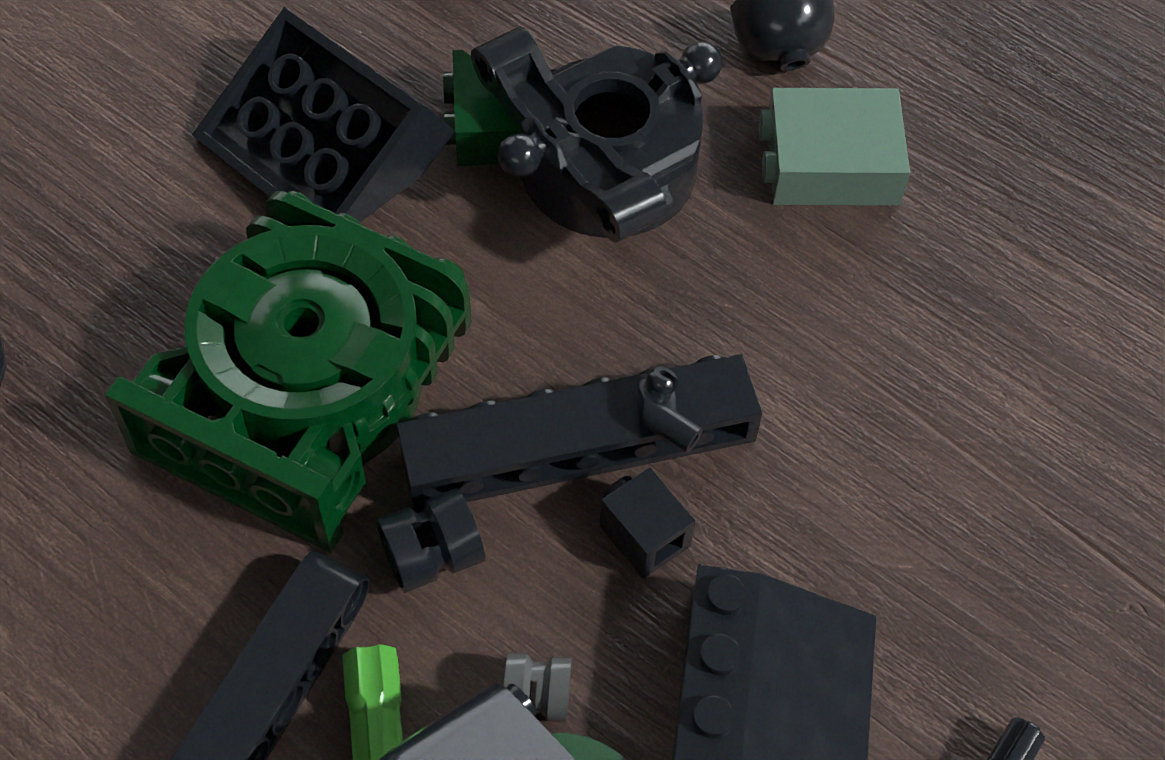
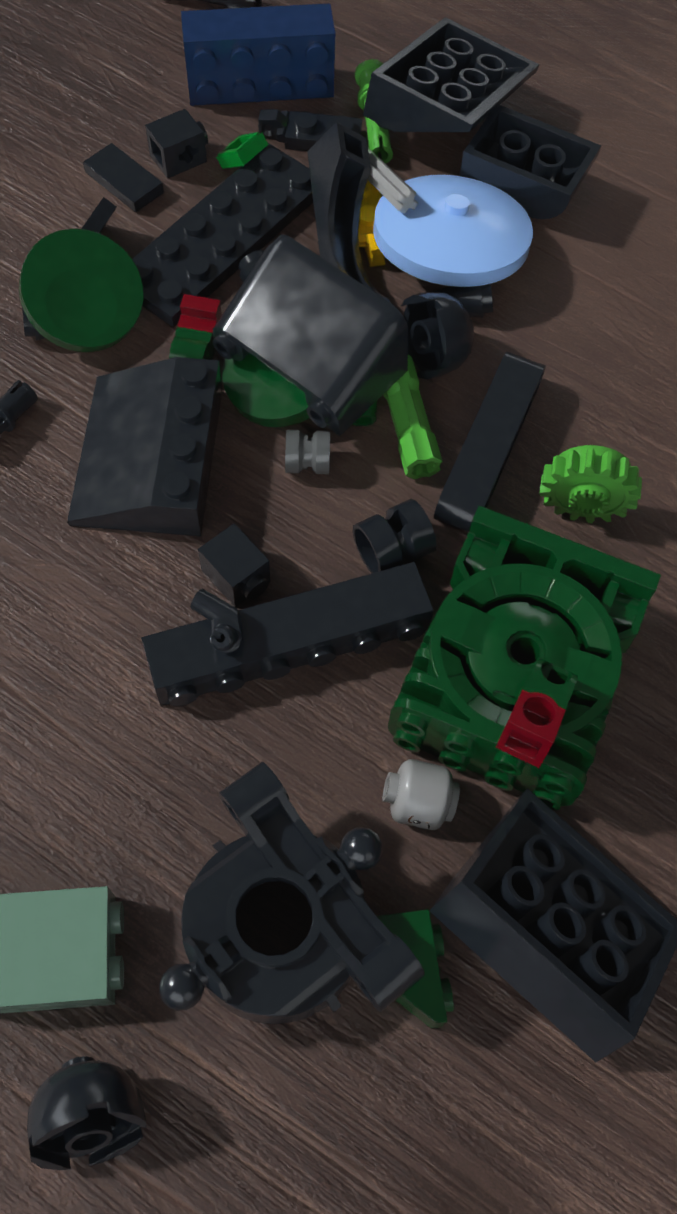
camera: 175 degrees right, 5 degrees up
(142, 577) = (591, 483): none -> bright green gear
(305, 229) = (538, 713): none -> dark red leg
(449, 239) = (421, 794): none -> light grey head

